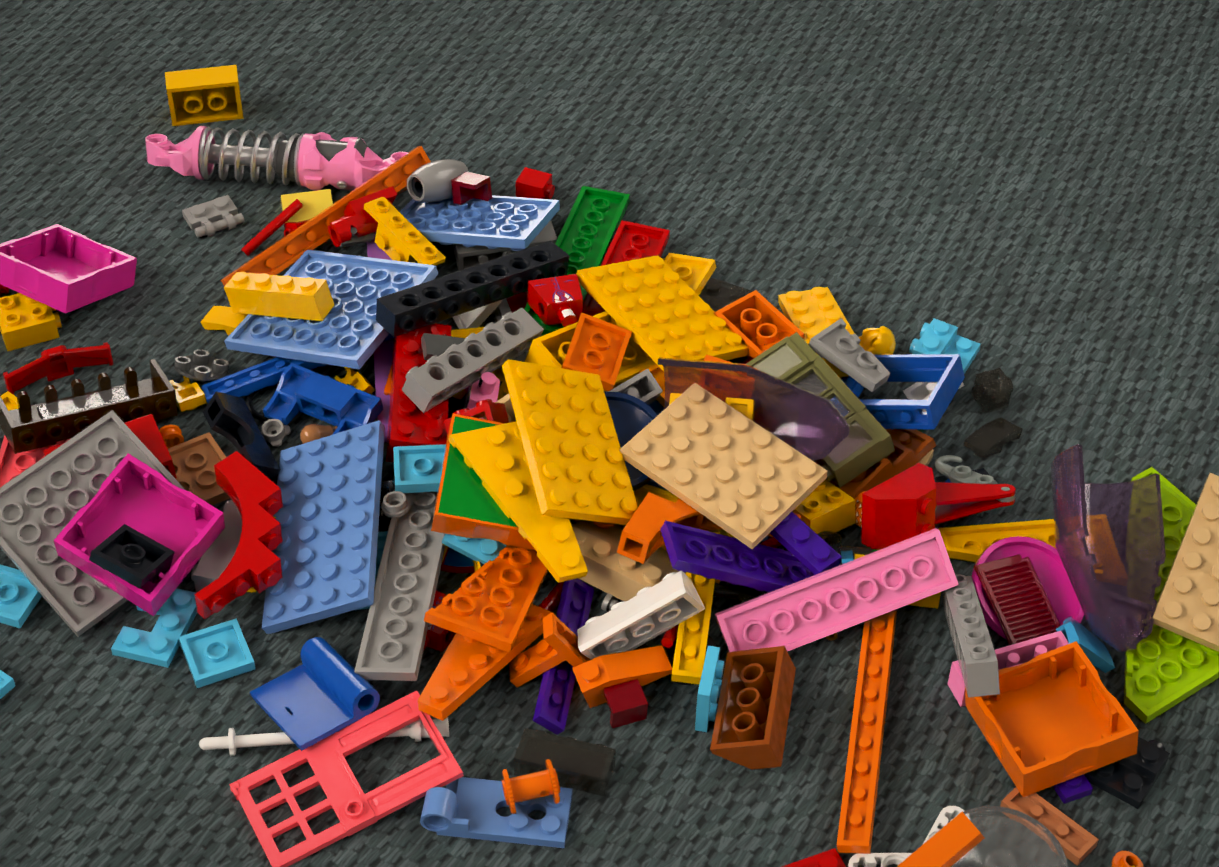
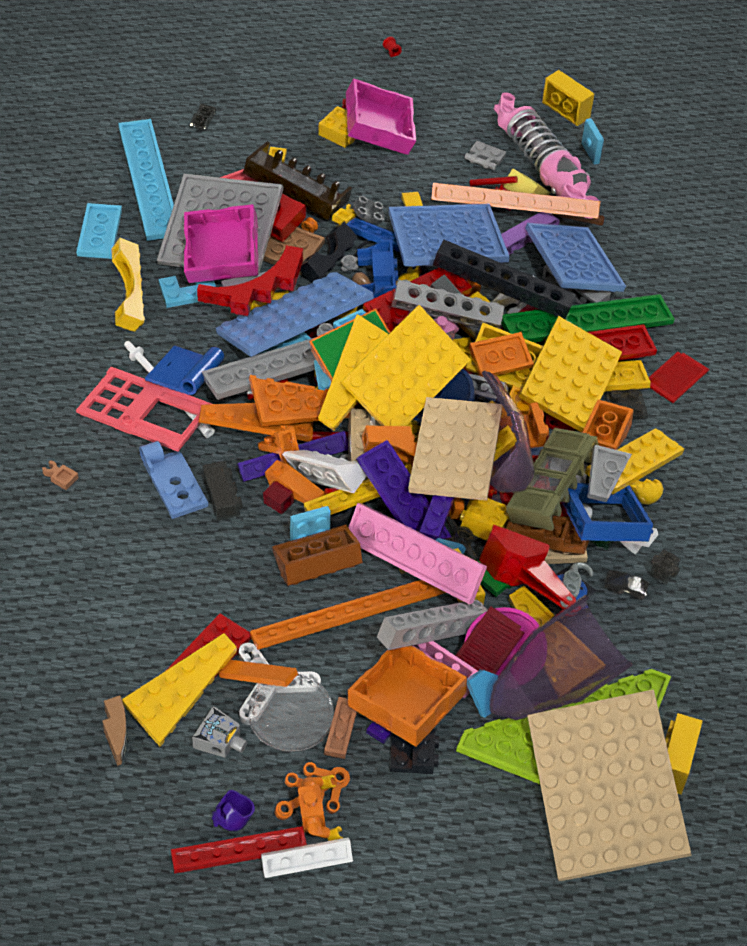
camera: 55 degrees right, 5 degrees up
(57, 363) = (320, 155): red plate -> none
(132, 556) = (200, 247): black plate -> none
(139, 703) = (126, 259): none -> yellow arch
(216, 653) = (186, 319): medium azure plate -> none
(279, 296) = (431, 207): yellow brick -> none
(296, 111) = (592, 141): none -> medium azure plate
(357, 224) = (527, 210): red plate -> none
(399, 237) = (526, 232): yellow bracket -> none
(434, 179) = (588, 226): light grey piece -> none
(471, 186) = (596, 241): dark red panel -> none
(531, 786) = (179, 474): orange hose -> none
(534, 184) = (638, 273): red brick -> none
(556, 299) = (533, 321): red torso -> none
(710, 237) = (676, 376): none -> red window
(943, 339) = (683, 530): medium azure plate -> none

